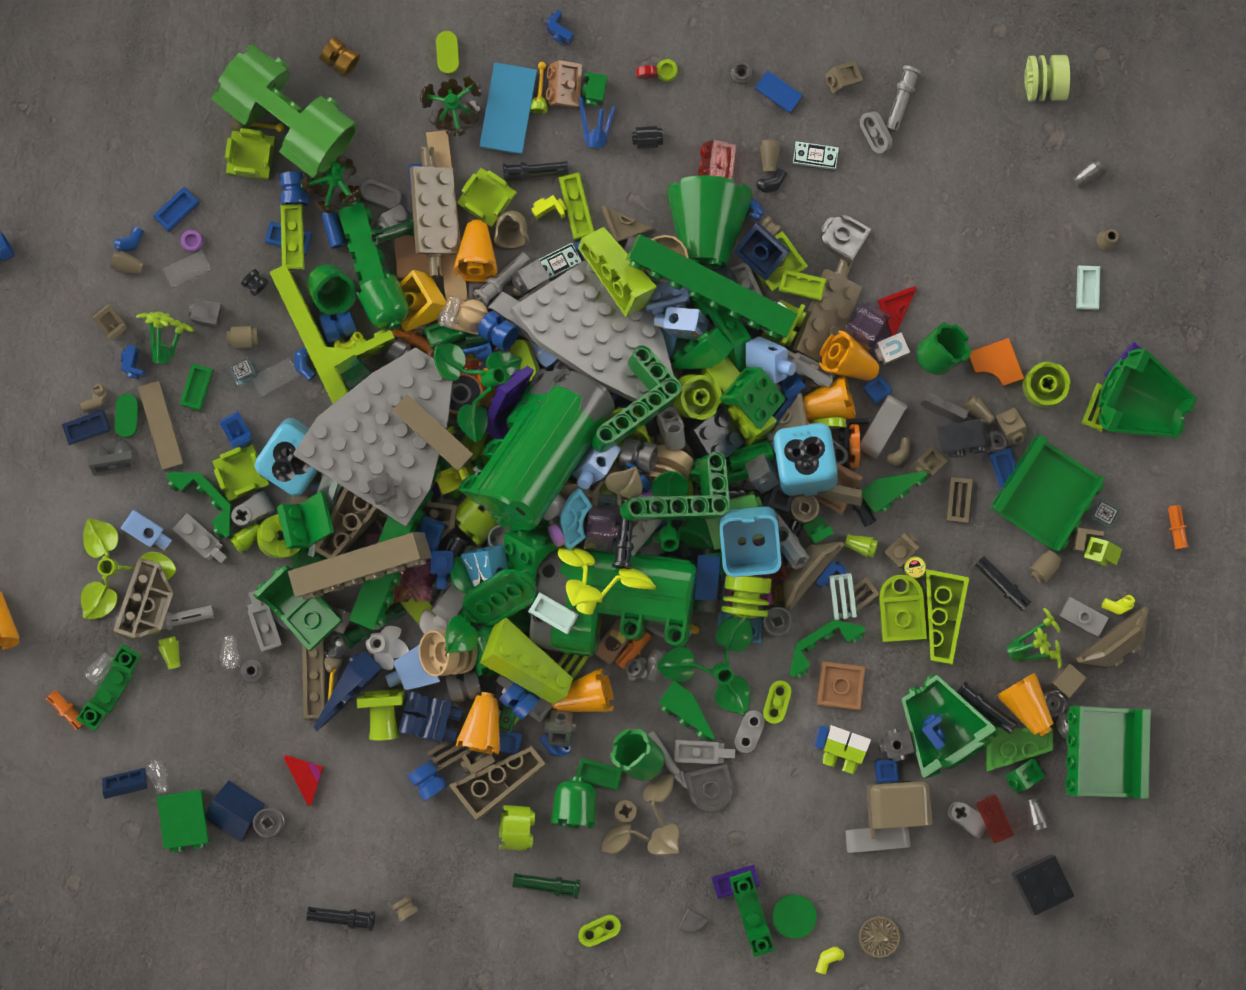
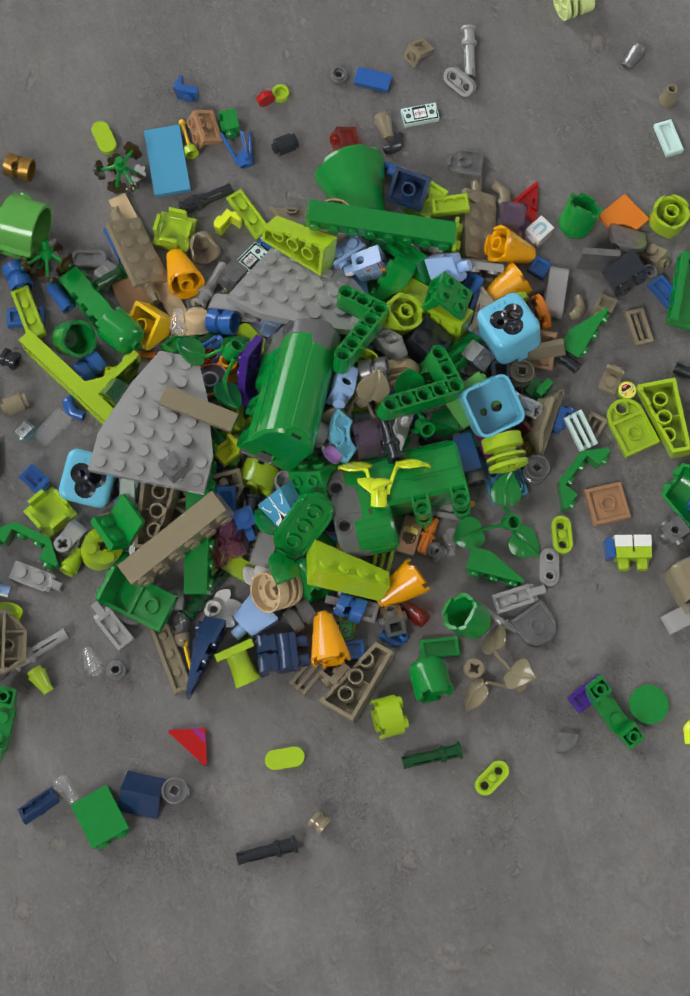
camera: 20 degrees left, 10 degrees down
(393, 829) = (284, 758): none -> lime tile
(427, 780) = (298, 705): blue wheel -> none
(553, 613) = (353, 519): light aqua tile -> none
(587, 729) = (416, 614): none -> clear red cone
(861, 544) = (579, 387): lime cone -> none
(872, 286) = (502, 191): none -> dark tan arm
(886, 771) = (671, 556): blue tile -> none
(987, 395) = (627, 238): none -> flat silver tile

